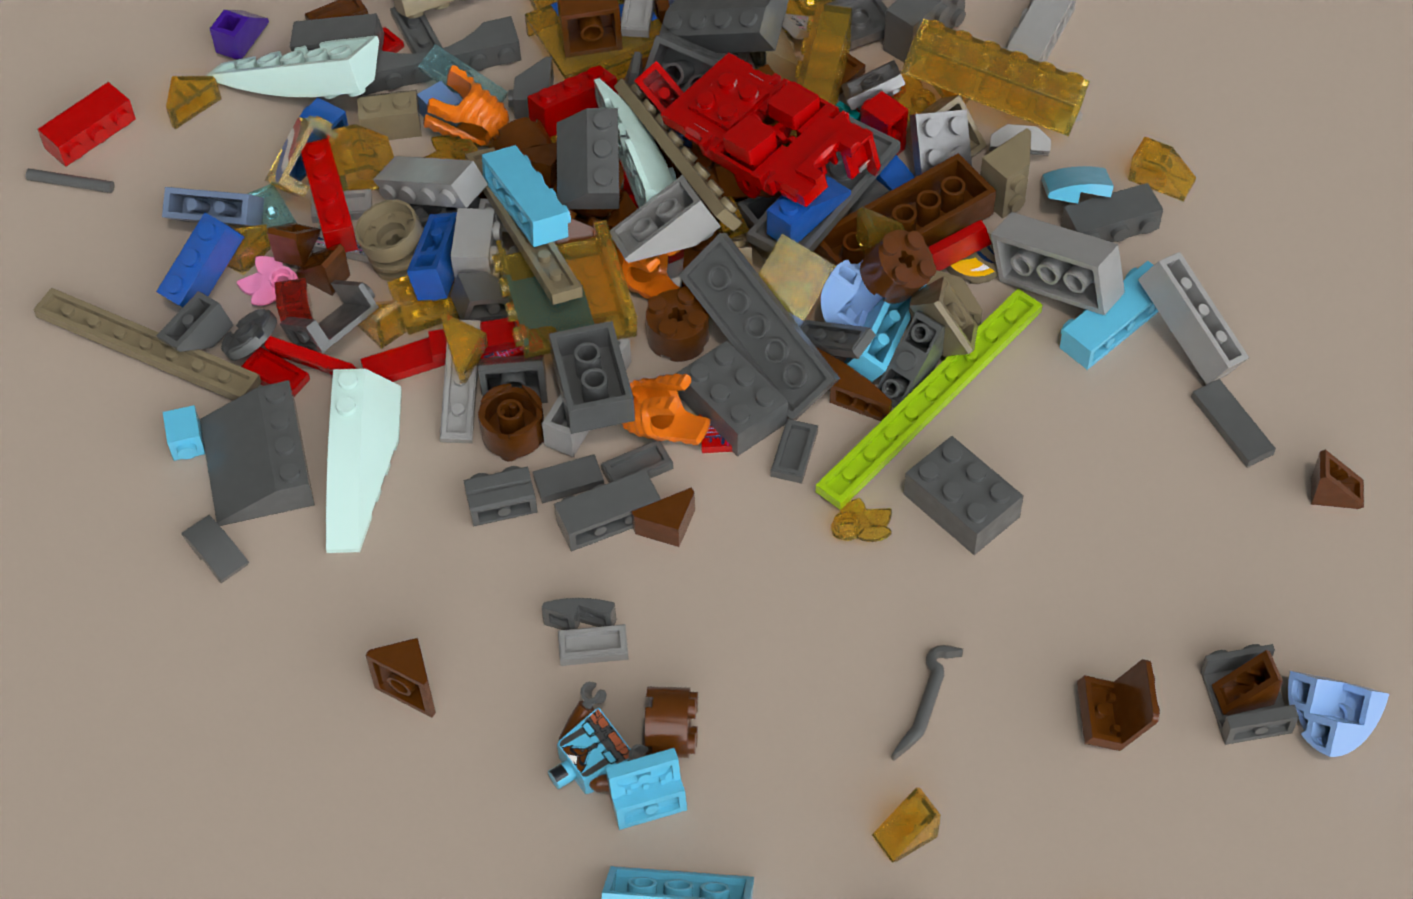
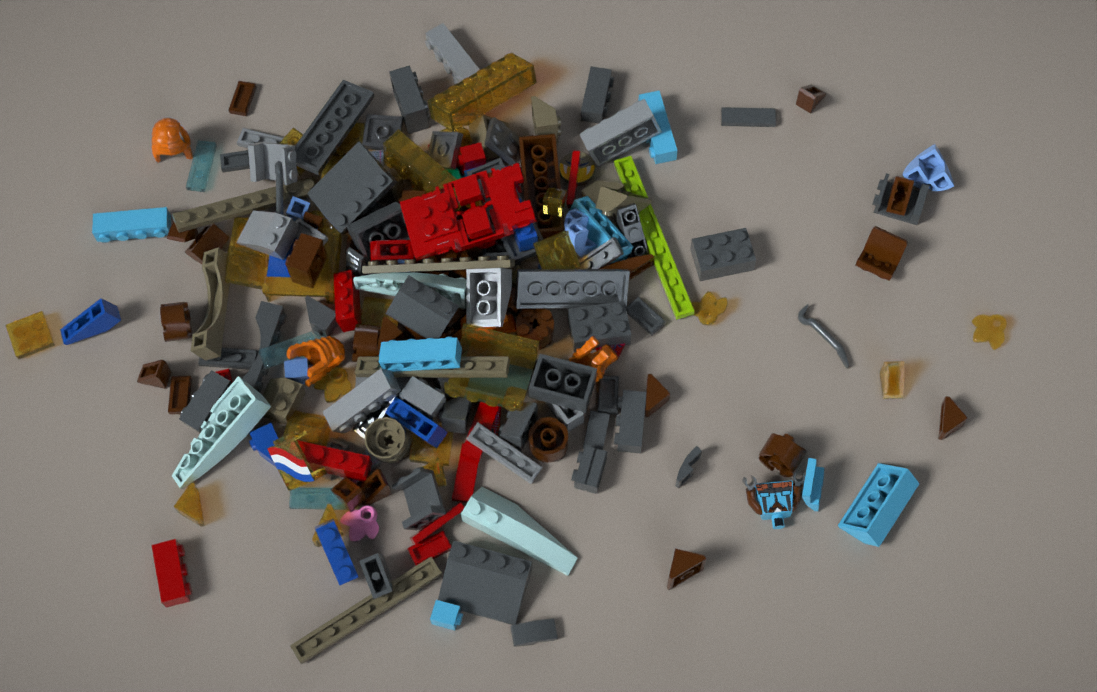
camera: 60 degrees left, 10 degrees up
(70, 180) = (205, 602): dark grey bar -> none
(227, 207) = (294, 527): sand blue brick -> none
(236, 32) = (159, 454): dark purple slope -> none
(252, 333) = (400, 548): dark grey tile -> none
(293, 299) = (391, 515): clear red brick -> none
(465, 345) = (493, 438): clear yellow slope -> none
(593, 645) = (706, 470): light grey tile -> none
(897, 266) = (584, 203): reddish brown brick -> none
(1039, 140) = (518, 106): light grey slope -> none
(1069, 182) = (568, 96): medium azure slope -> none
(1161, 169) = (580, 56): clear yellow slope -> none
(1193, 318) = (689, 95): light grey brick -> none

